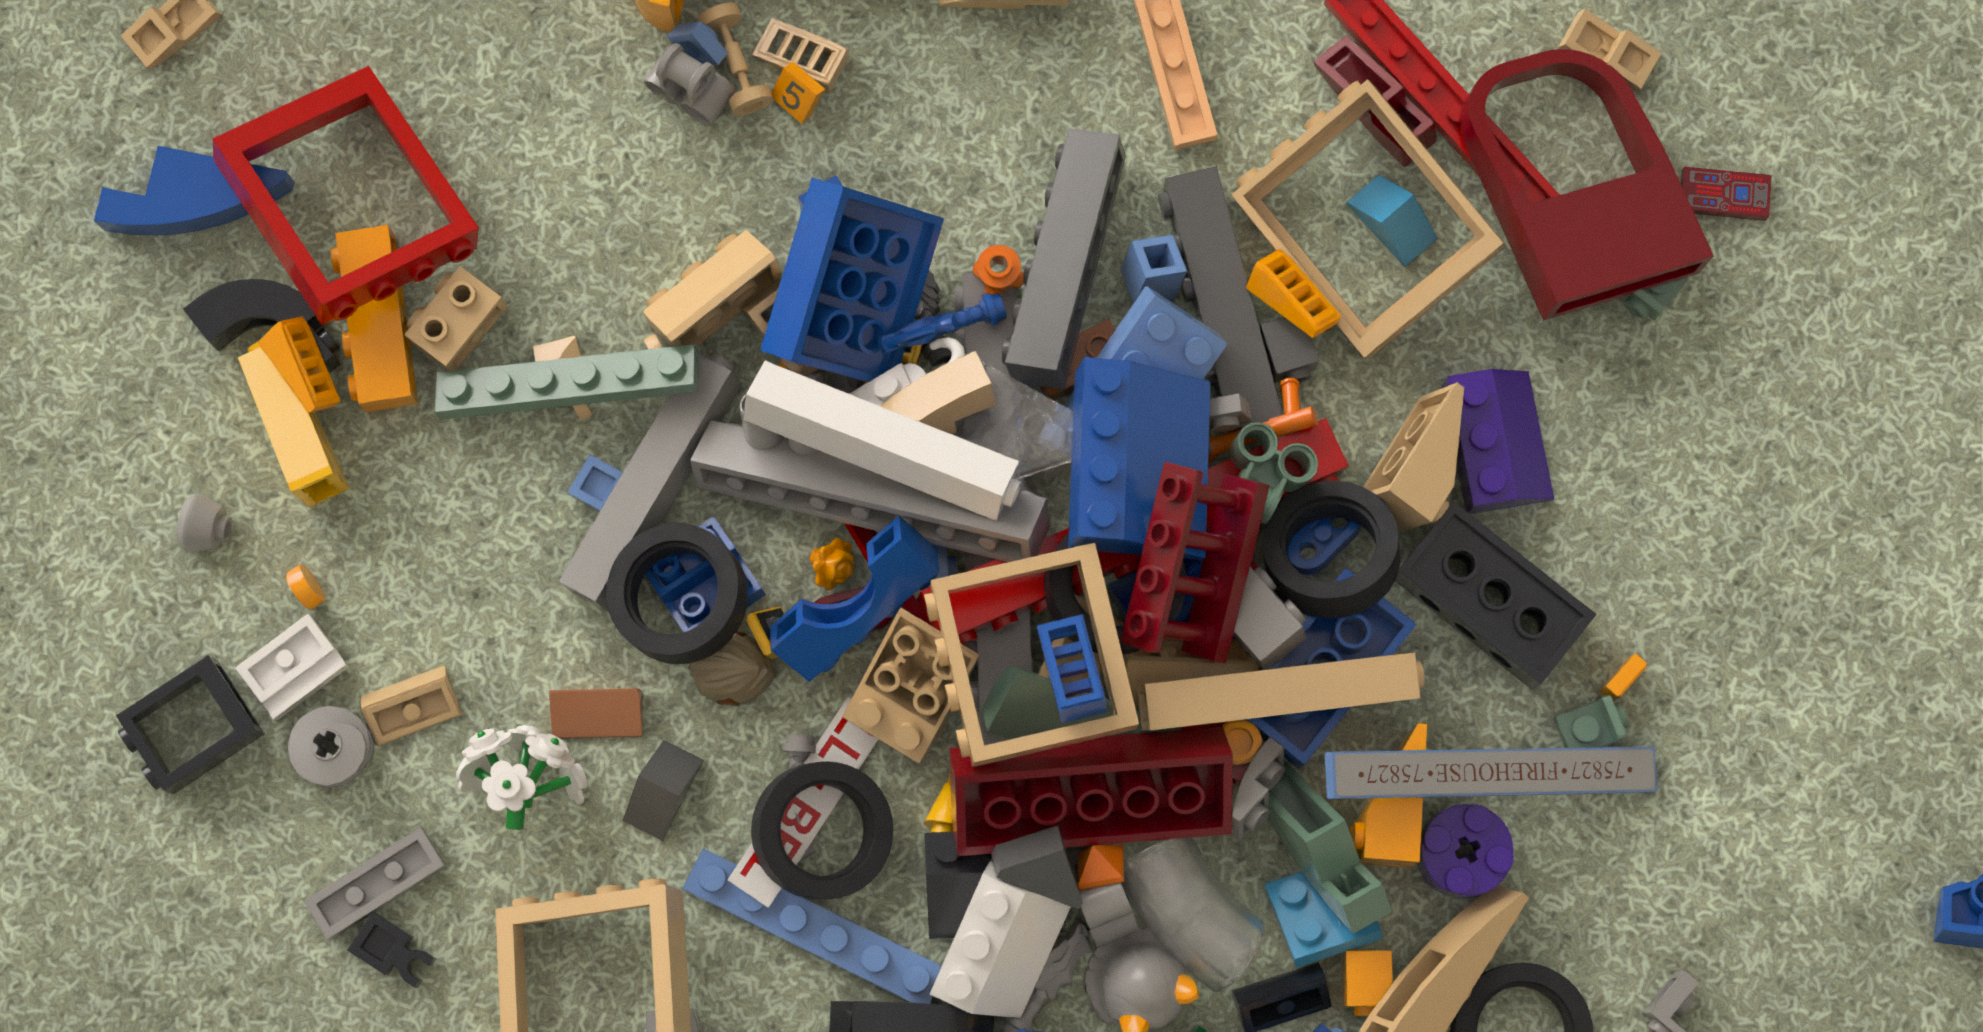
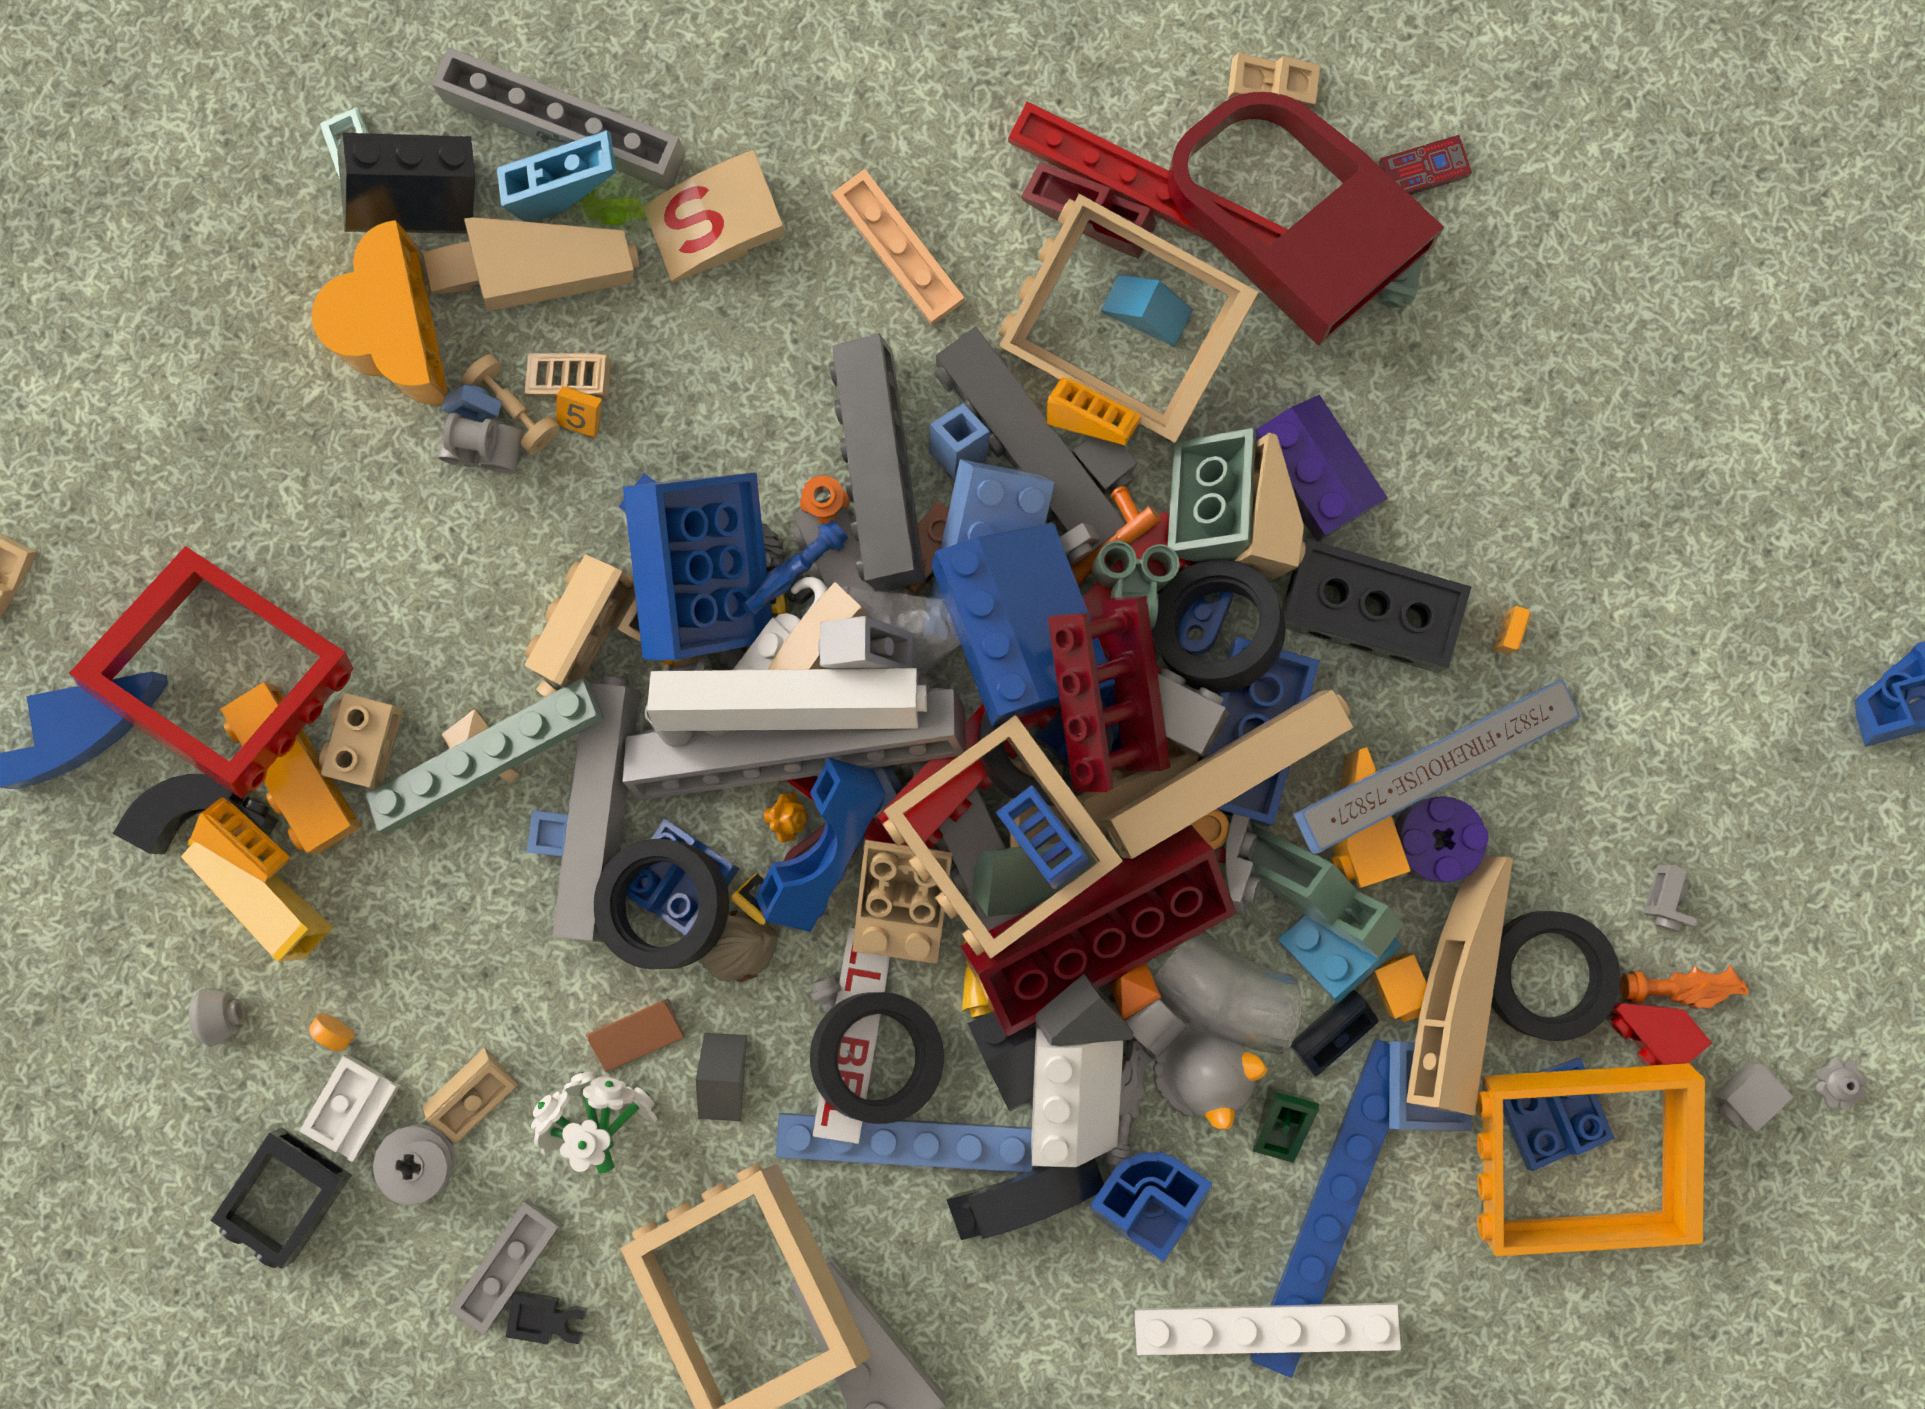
camera: 20 degrees left, 5 degrees up
(979, 418) = (864, 644): none -> light grey brick
(1377, 422) = (1212, 496): none -> sand green slope
(1593, 724) = (1502, 682): sand green bracket -> none

